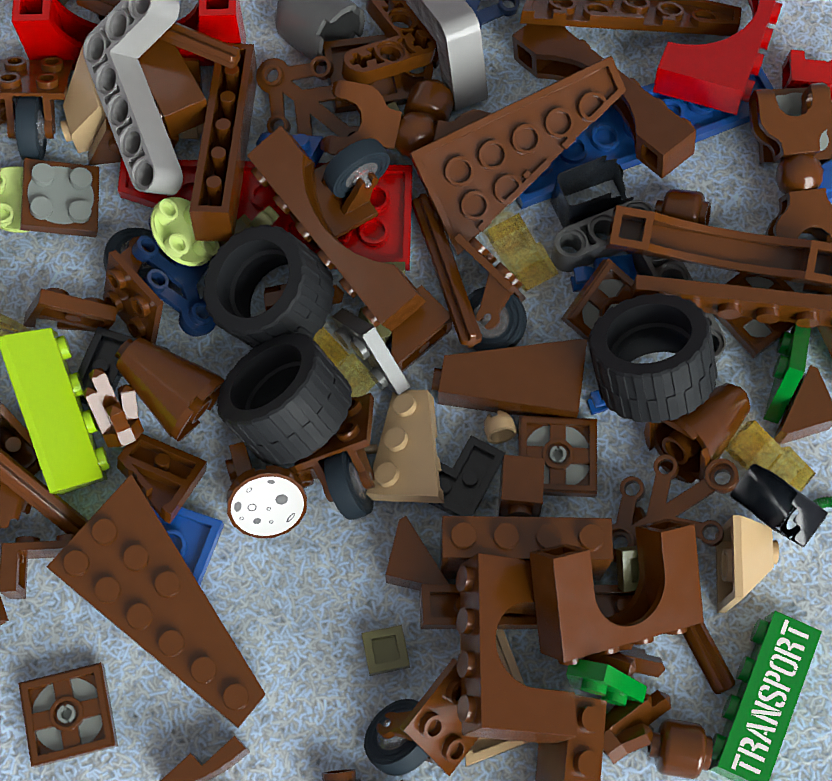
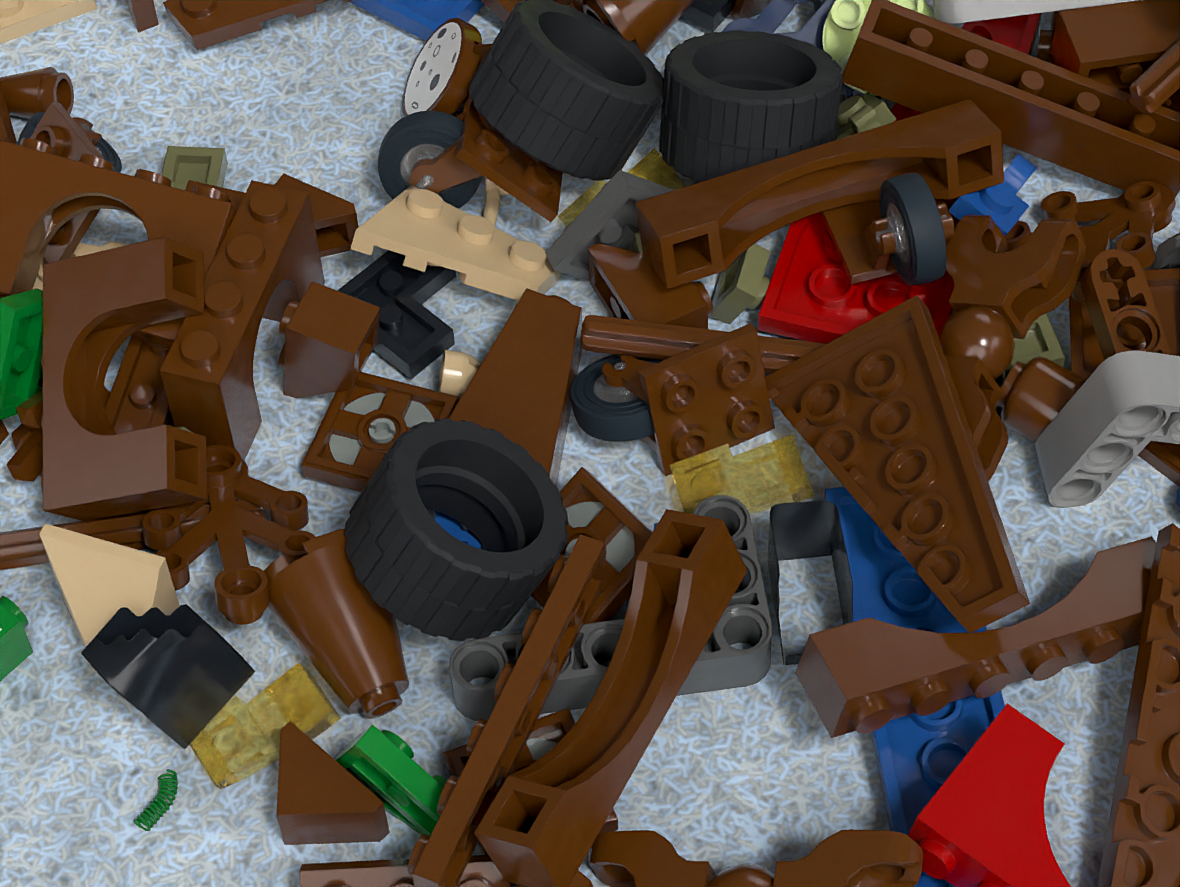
camera: 110 degrees right, 15 degrees down
(685, 205) = (737, 722): reddish brown head -> none

